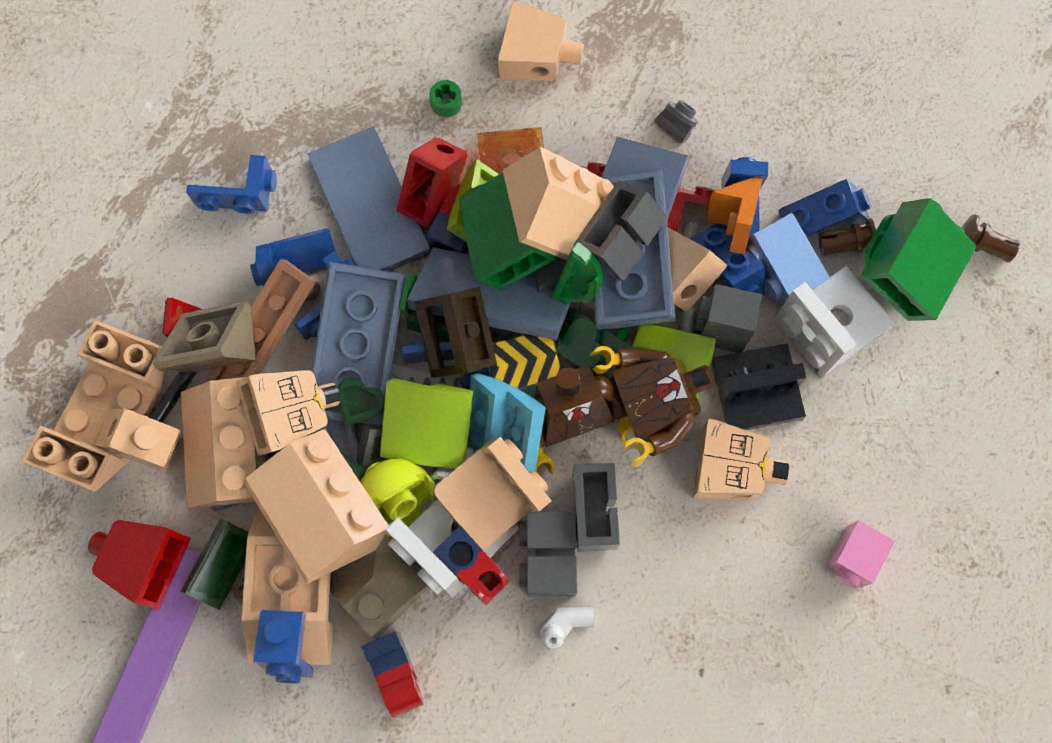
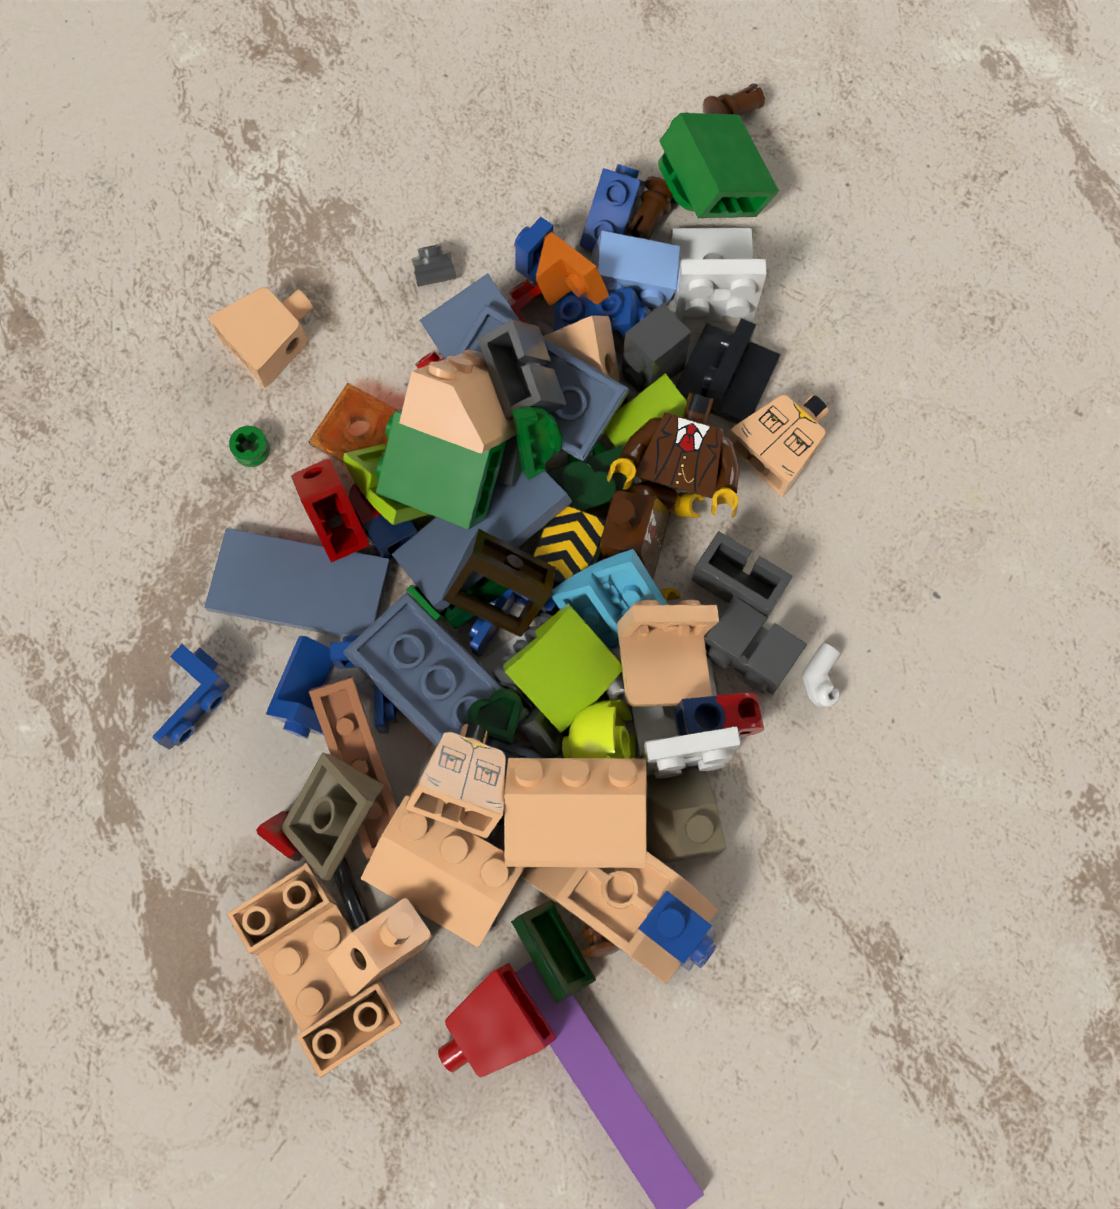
camera: 55 degrees left, 0 degrees up
(394, 673) = (765, 855): leg -> none
(860, 555) = (928, 396): bright pink brick -> none

